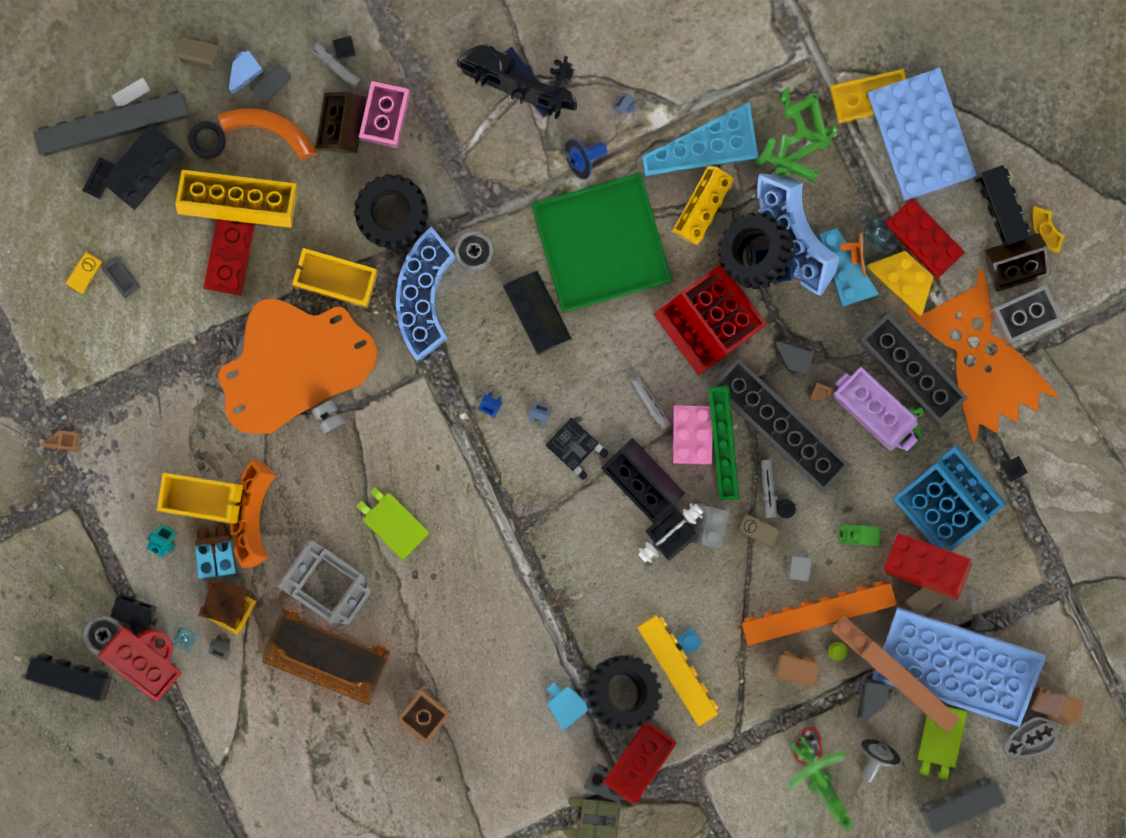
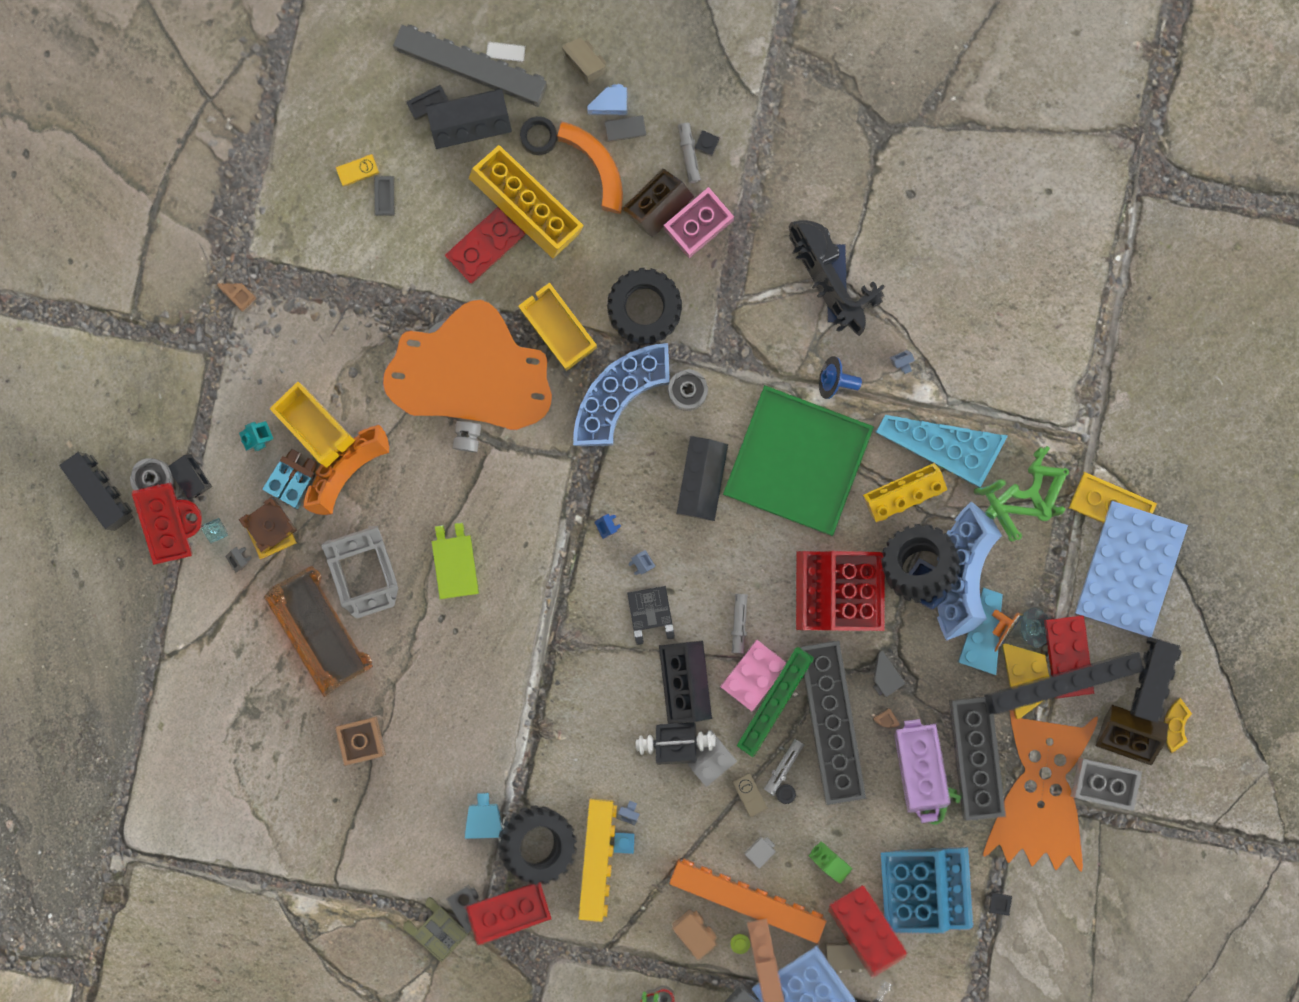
camera: 45 degrees right, 0 degrees up
(675, 617) = (628, 814): none -> sand blue tile
(935, 260) = (1064, 683): none -> black brick

